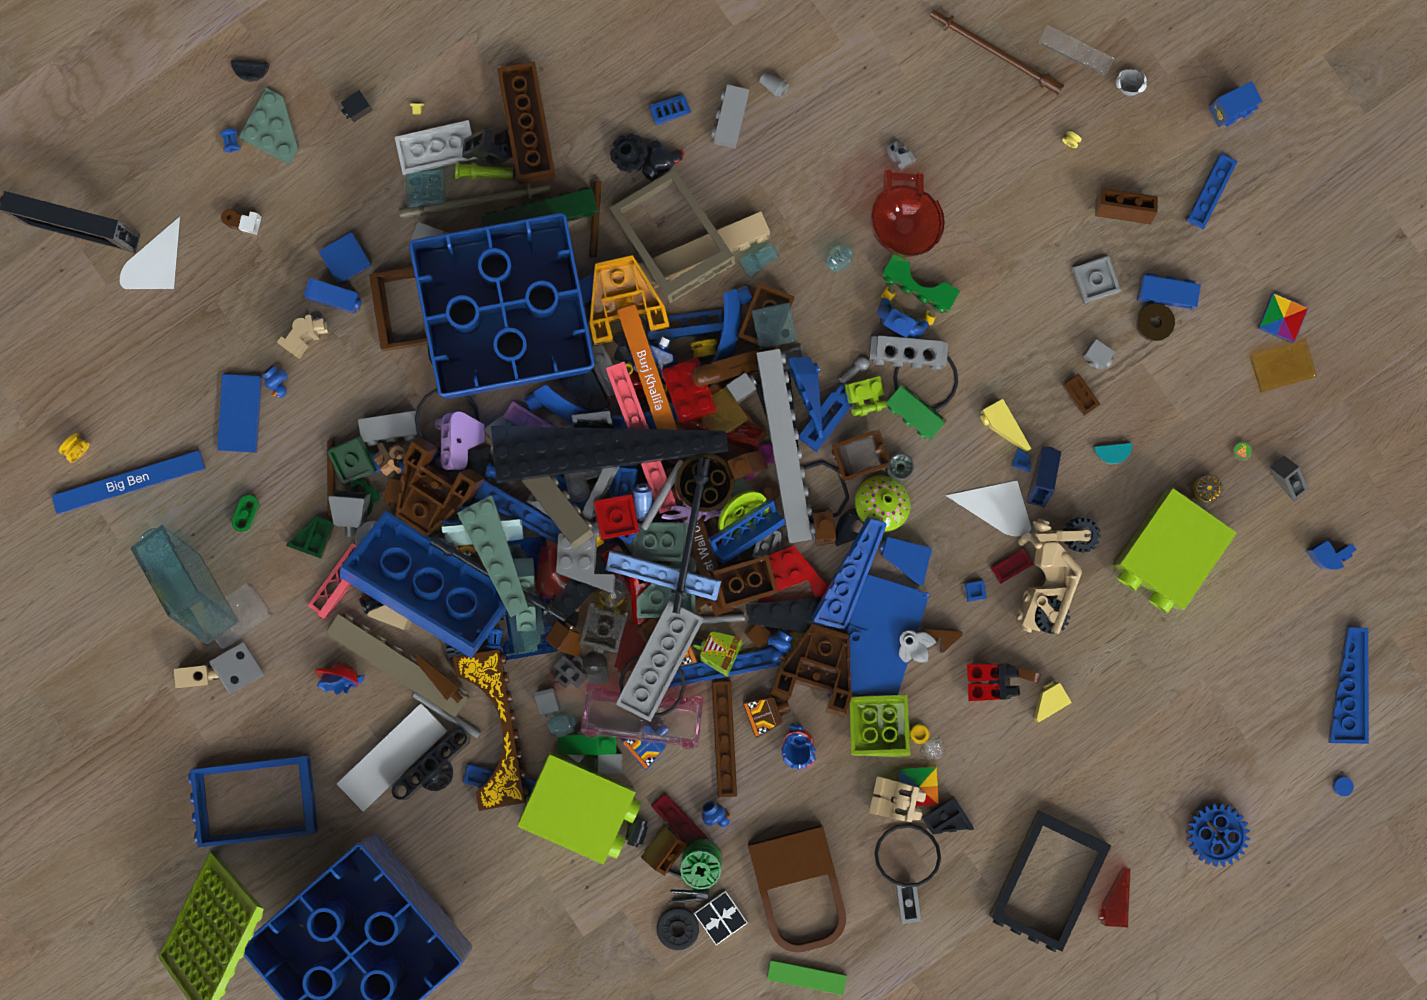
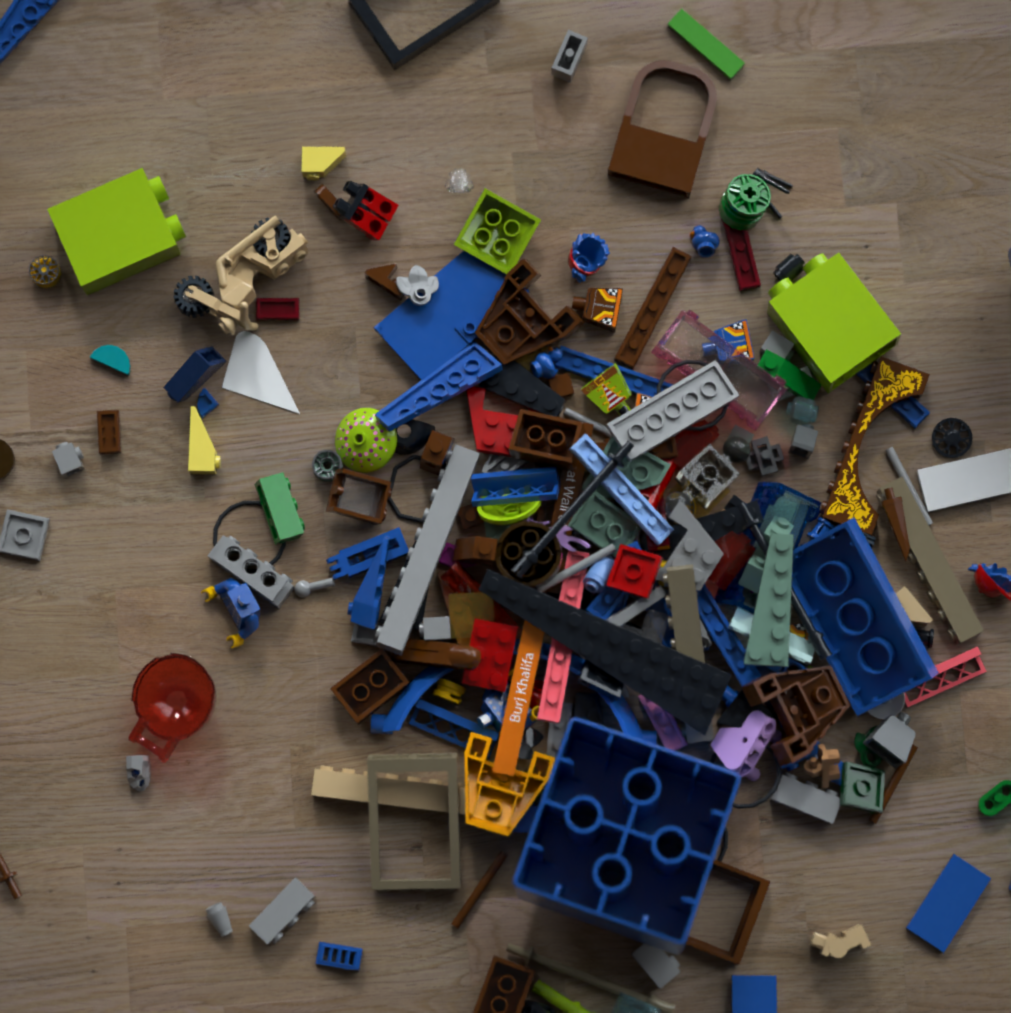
camera: 145 degrees left, 5 degrees down
(273, 377) = (894, 916): blue animal -> none
(313, 537) = (943, 734): dark green wing -> none
(332, 296) = (788, 963): blue slope -> none
(392, 491) = (838, 731): reddish brown brick -> none
(421, 767) = (961, 441): black beam -> none
(564, 638) = (752, 487): reddish brown slope -> none
(573, 205) = (532, 923): dark green brick -> none
(629, 153) = (406, 934): black plant -> none
(660, 160) = (379, 909): black animal -> none
(664, 850) = (773, 235): reddish brown brick -> none
(677, 916) = (806, 145): black wheel -> none
(720, 917) = (755, 144): black tile -> none
(754, 262) = (347, 750): clear light blue piece -> none
(774, 325) = (367, 670): clear light blue tile -> none
(839, 258) = (262, 703): clear light blue head -> none
(863, 390) = (318, 559): lime plate -> none
(896, 800) = (523, 154): tan hips -> none
(898, 273) = (184, 607): green arch -> none
(907, 558) = (373, 374): blue slope -> none
(916, 828) = (543, 131): black piece -> none
(919, 733) = (463, 204): yellow tile -> none
(925, 779) = (494, 156): tile -> none
(947, 818) = (484, 111): black wing -> none
(975, 590) = (327, 306): blue tile -> none

